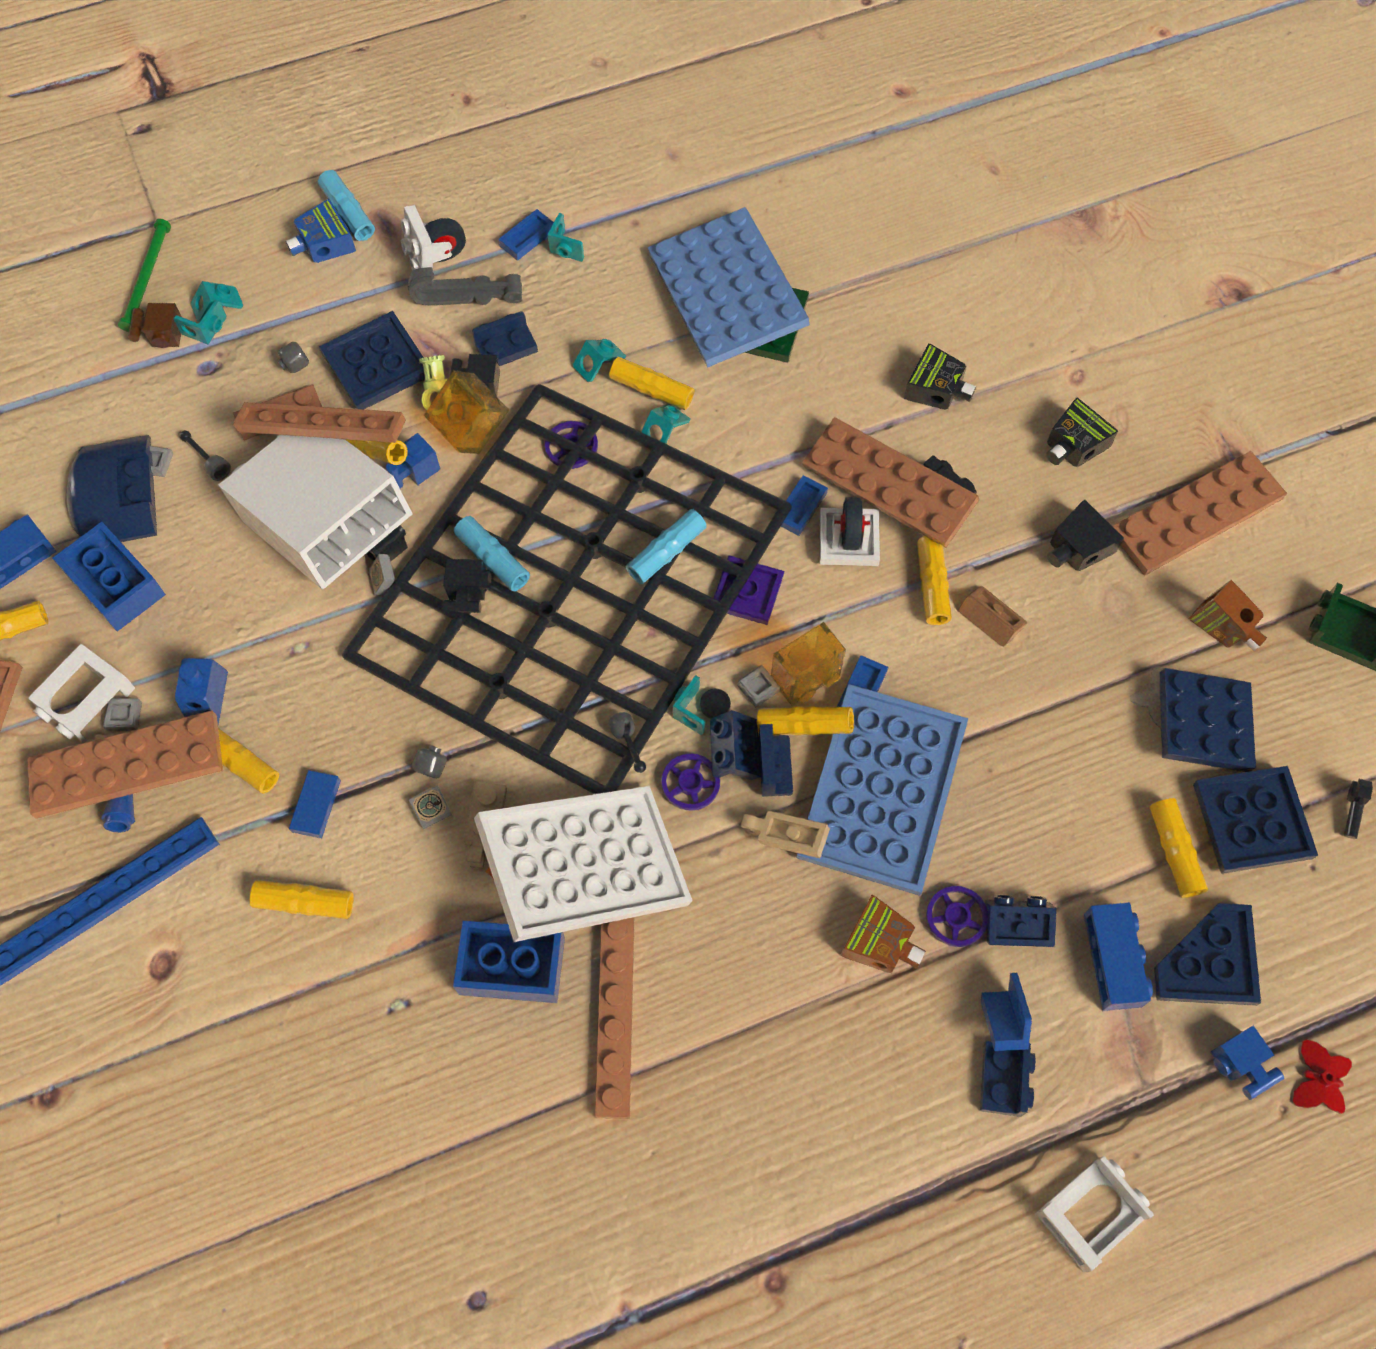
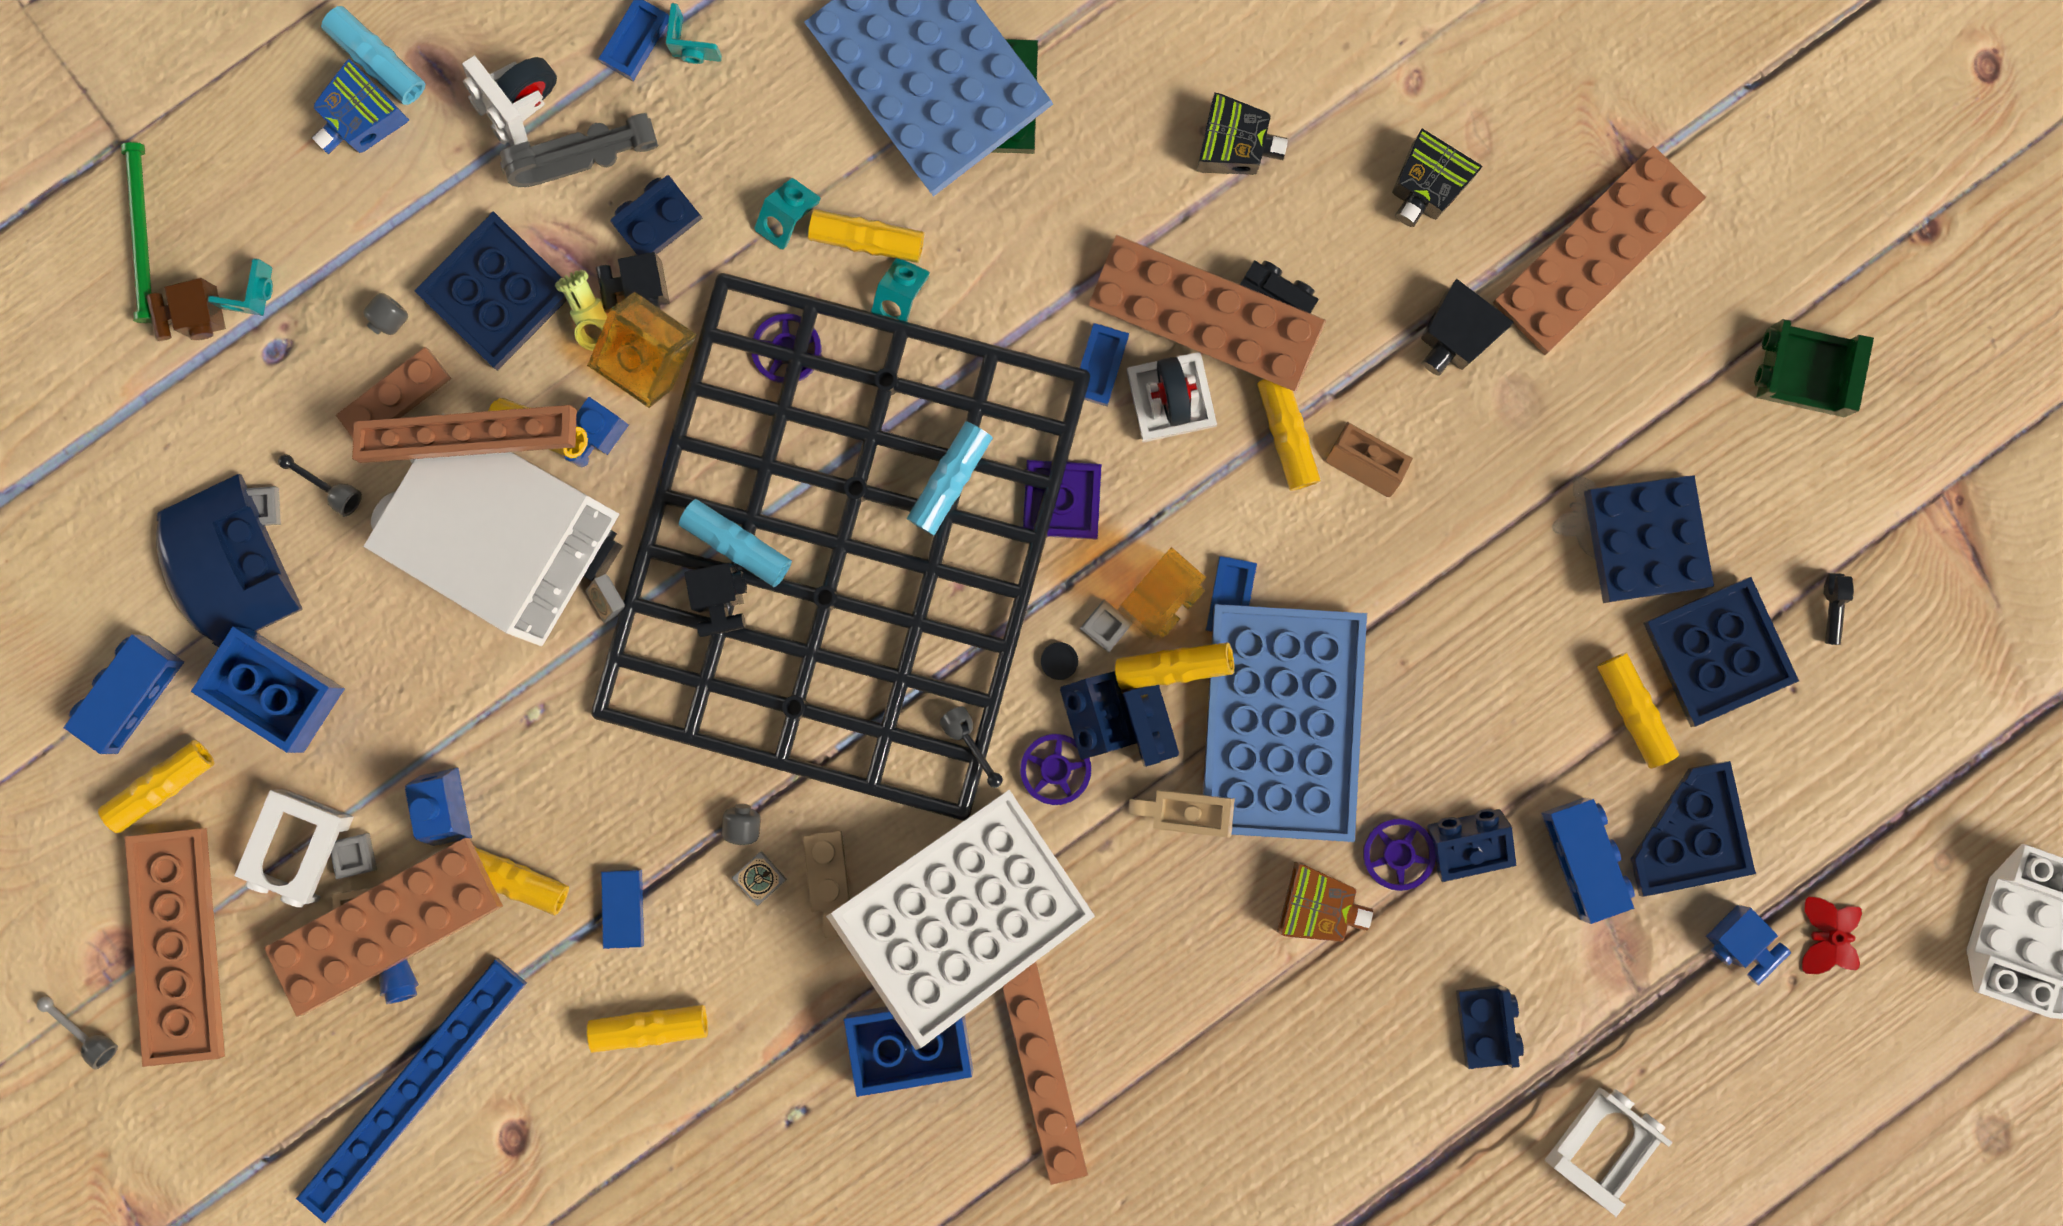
camera: 10 degrees left, 20 degrees up
(210, 292) = (246, 243): teal bracket -> none
(682, 700) = (1019, 670): teal bracket -> none
(1008, 1017) = (1478, 966): blue panel -> none
(1230, 617) = (1658, 398): dark orange torso -> none

